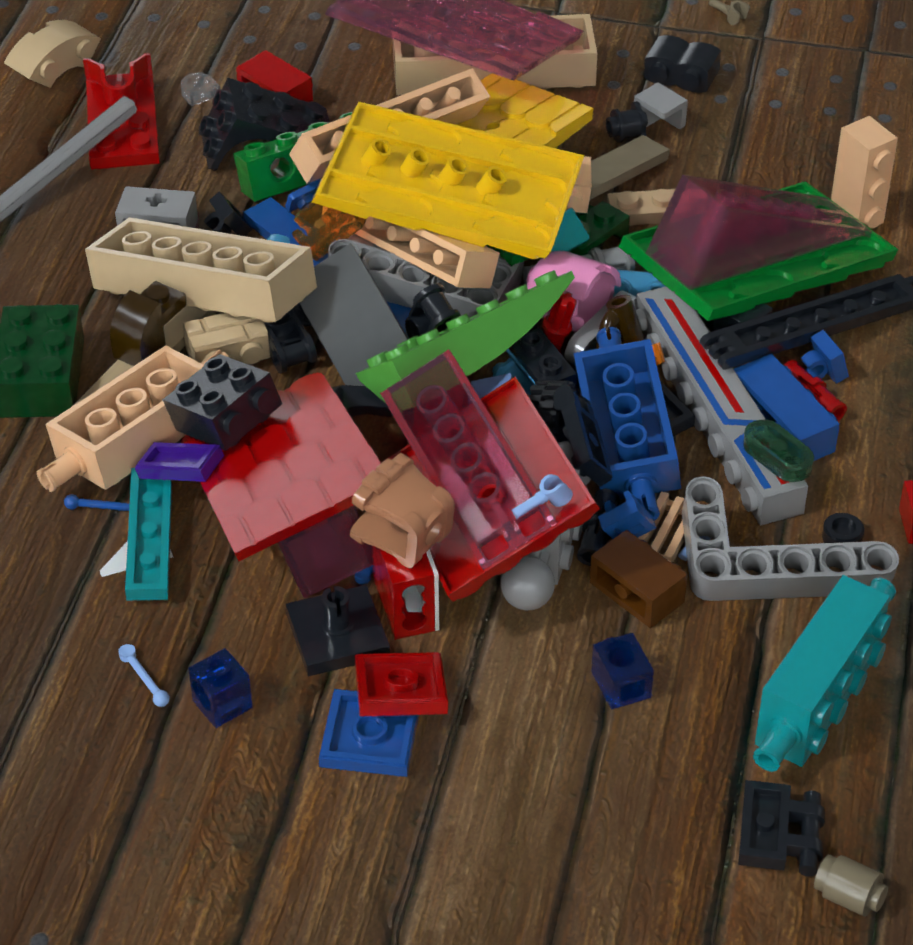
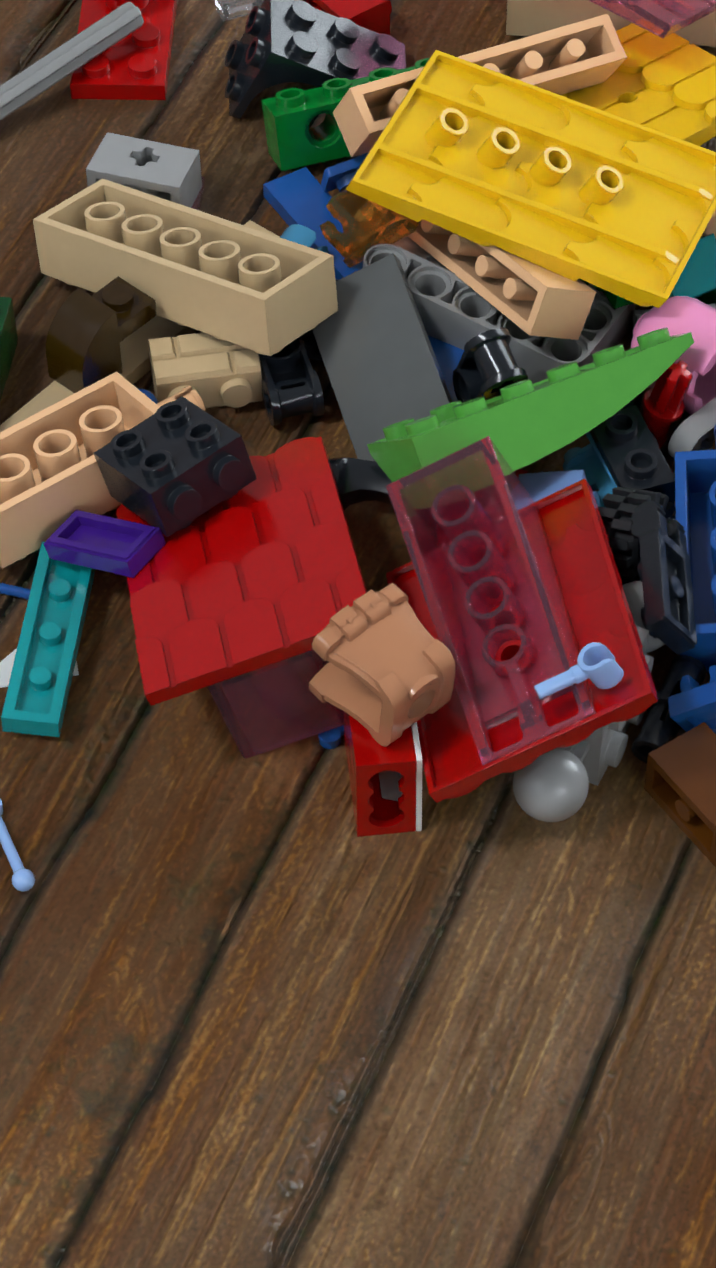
camera: 10 degrees right, 5 degrees up
(220, 687) = (103, 878): clear blue brick -> none
(226, 217) = (238, 192): black tile -> none
(336, 628) = (280, 813): black tile -> none
(366, 742) = (297, 970): blue tile -> none
(401, 684) = (350, 907): red tile -> none
(622, 670) = (662, 949): clear blue brick -> none

